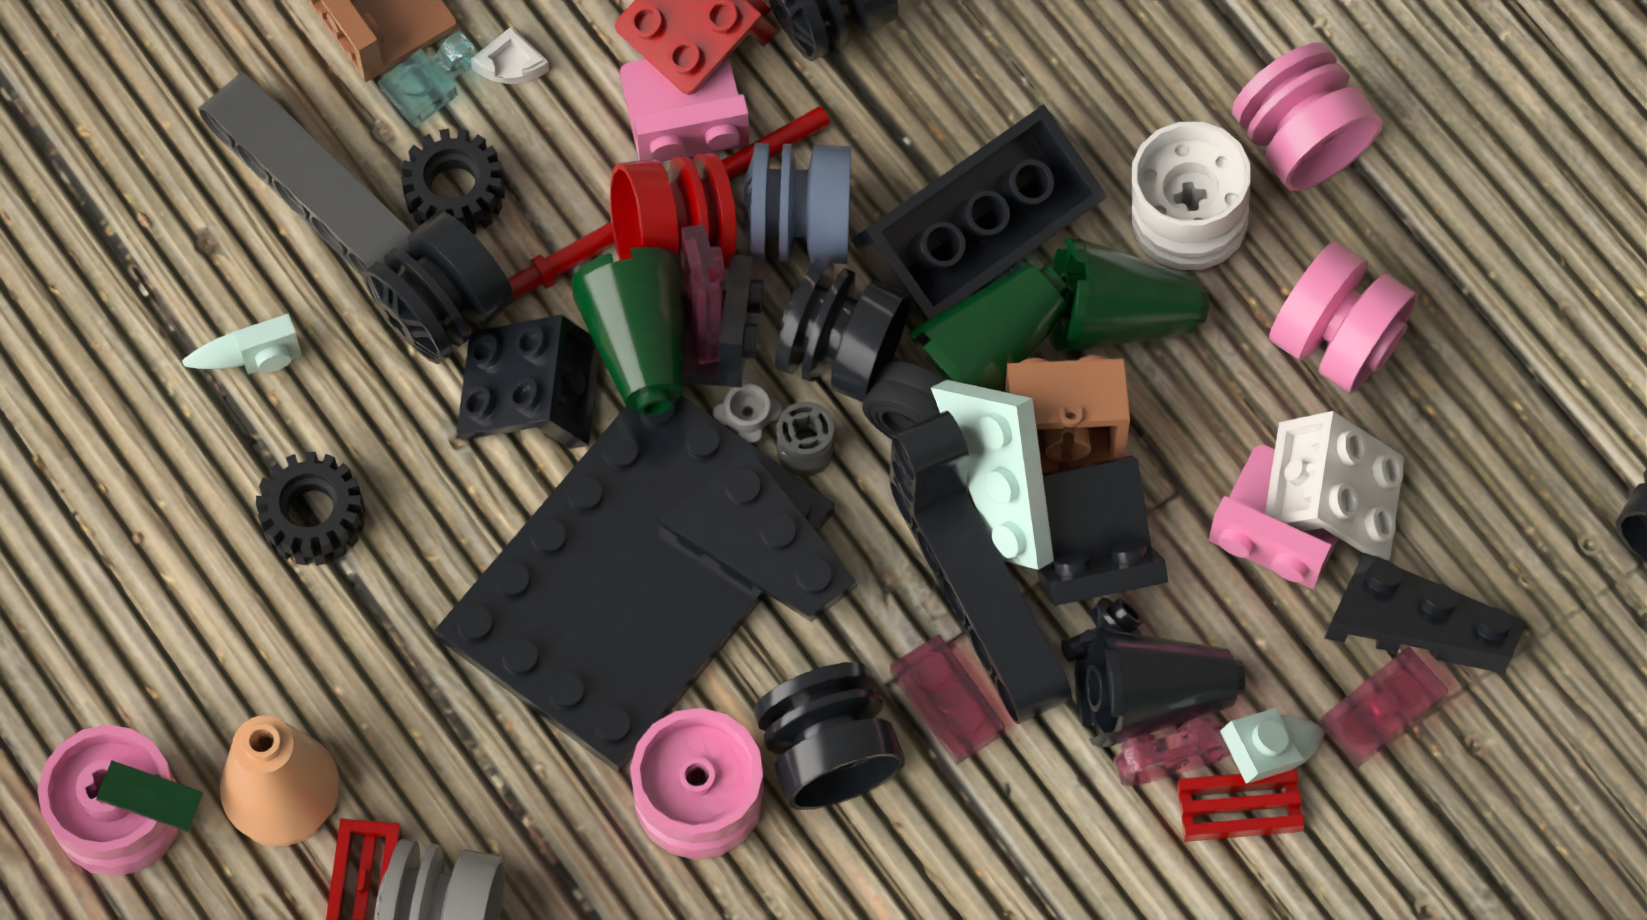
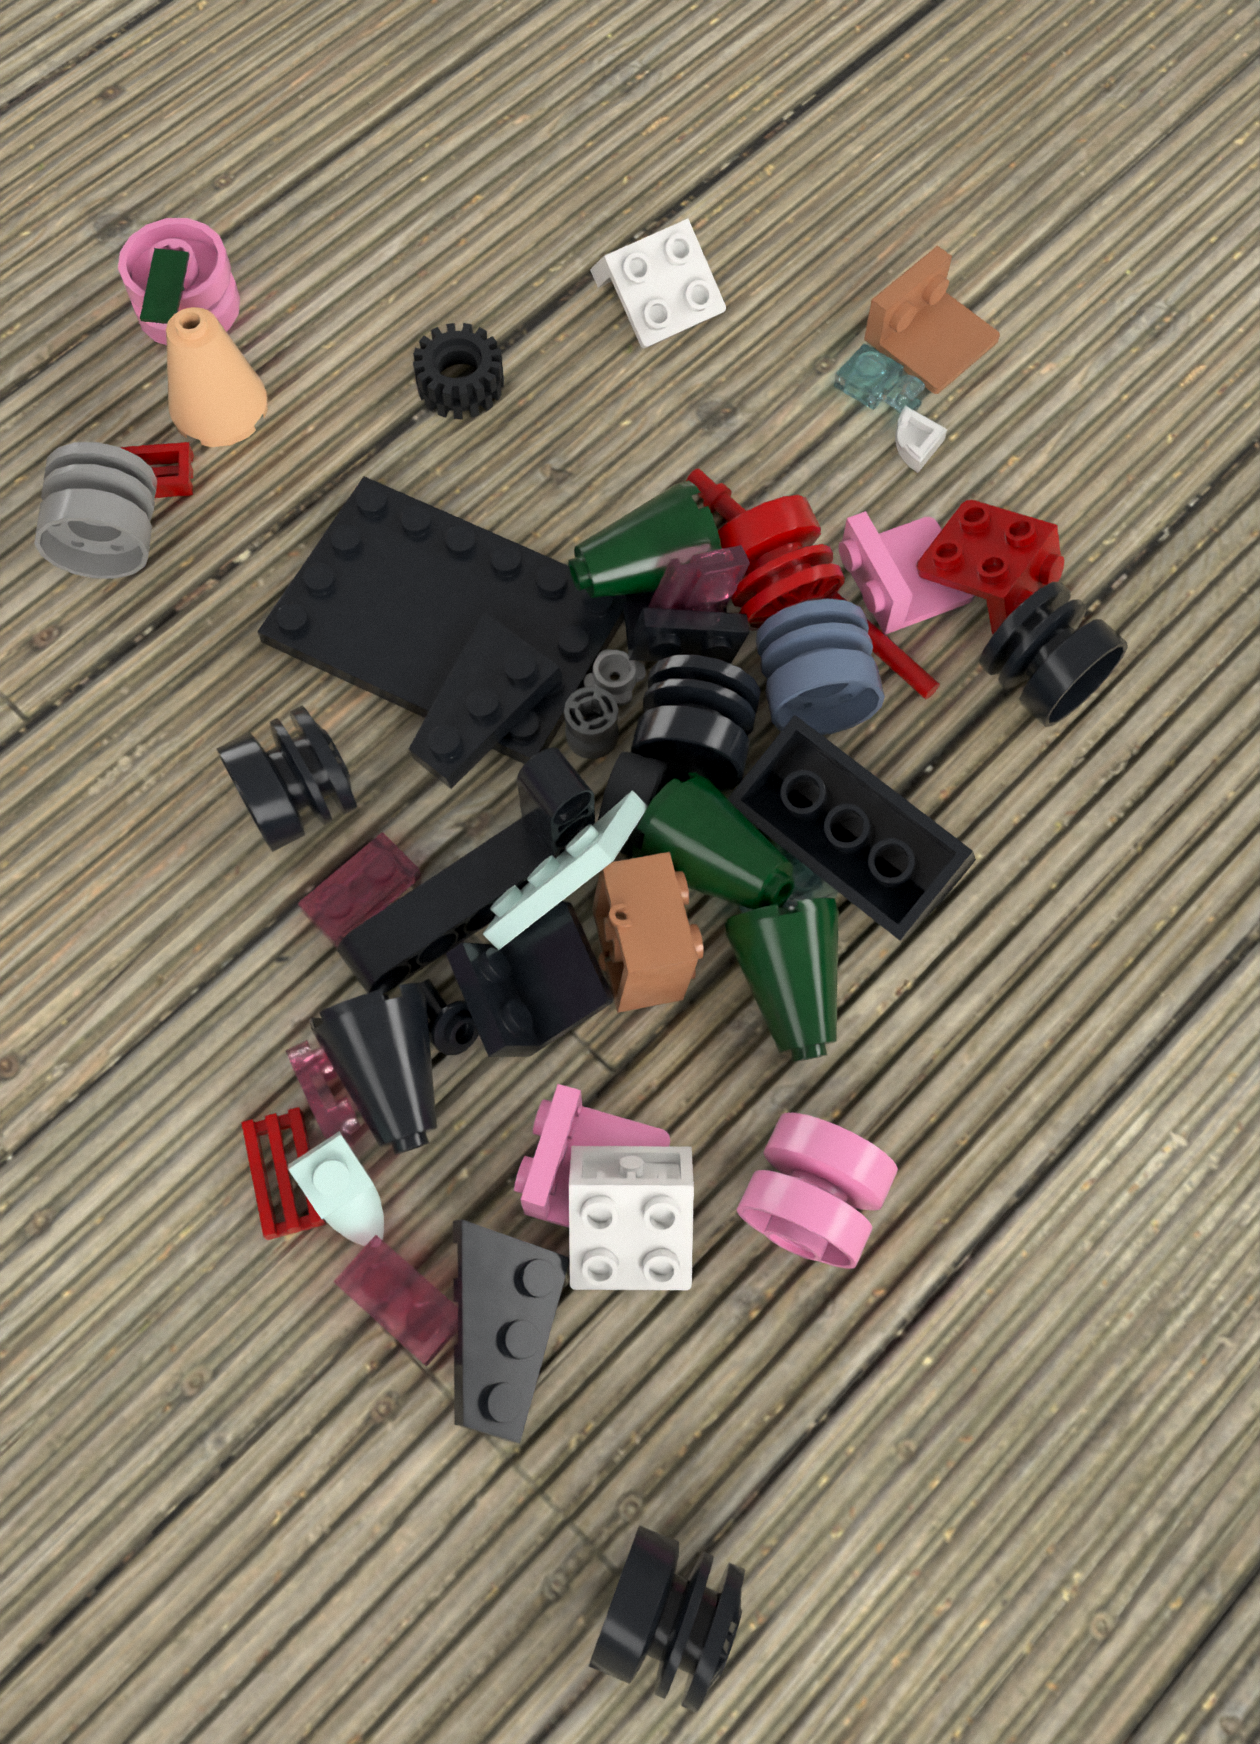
camera: 80 degrees right, 0 degrees up
(235, 270) = (662, 283): none -> white bracket
(258, 347) = (596, 308): light aqua plate -> none
(303, 174) = (755, 314): dark grey beam -> none
(447, 279) = (666, 405): black wheel -> none
(454, 154) = (785, 391): black tyre -> none
(528, 379) = (596, 494): black bracket -> none
(692, 749) = (233, 681): bright pink wheel -> none
(1193, 169) = (931, 991): white wheel -> none
(1307, 116) = (1044, 1121): bright pink wheel -> none

